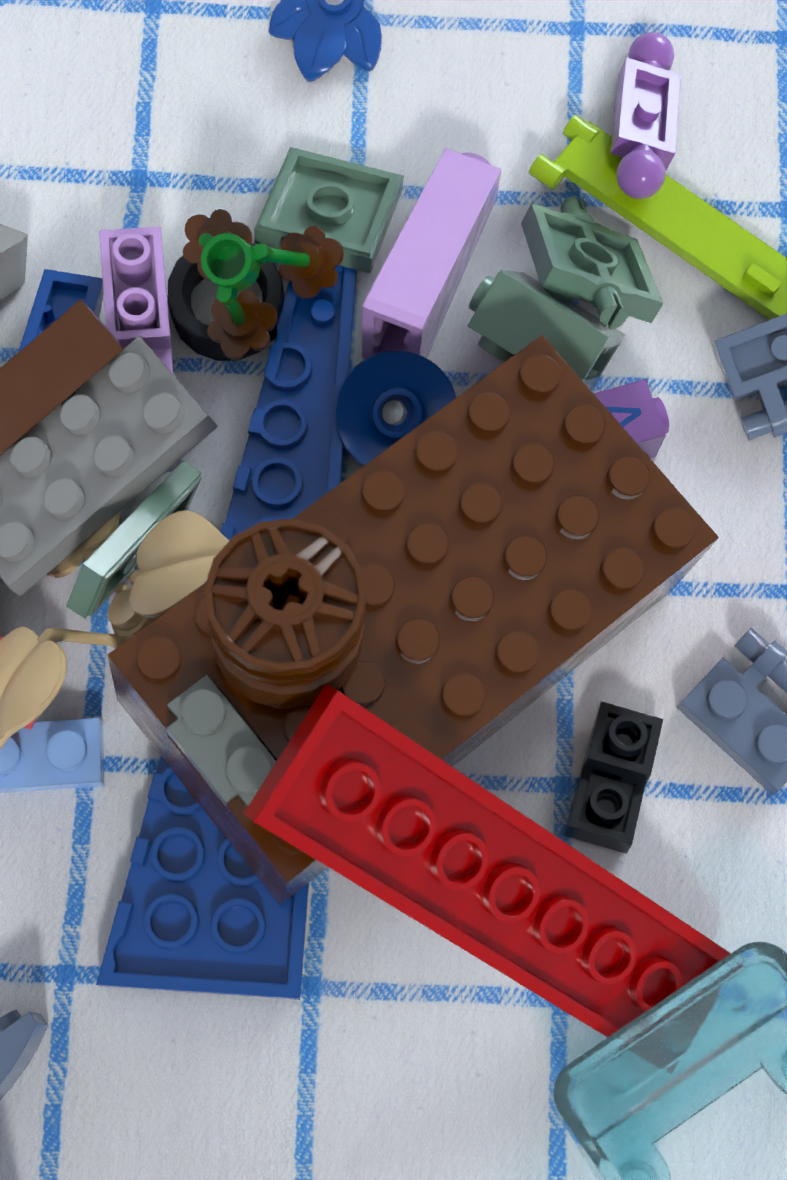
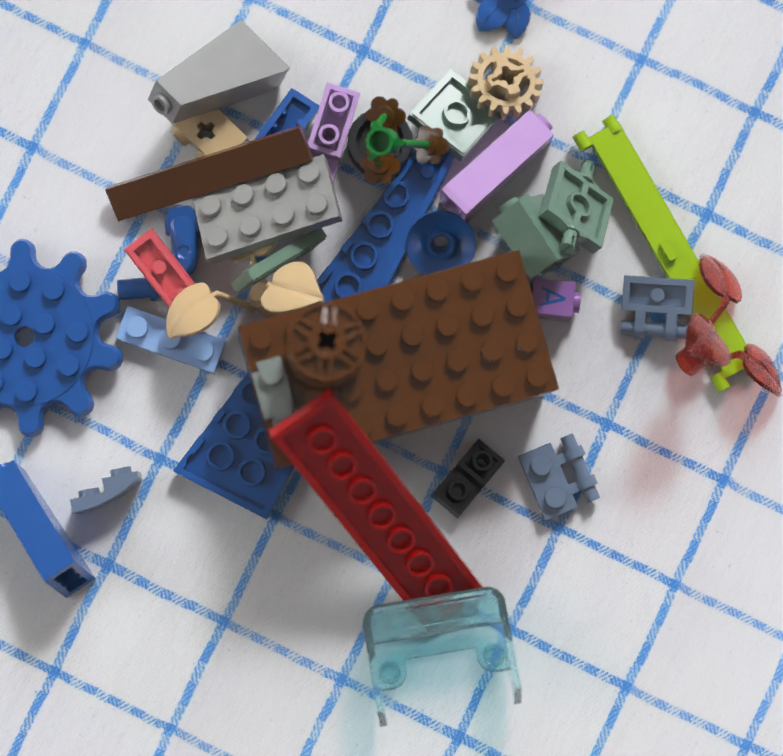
camera: 25 degrees right, 10 degrees up
(386, 130) = (496, 90): none -> tan gear
(646, 115) = (649, 131): medium lavender plate -> none

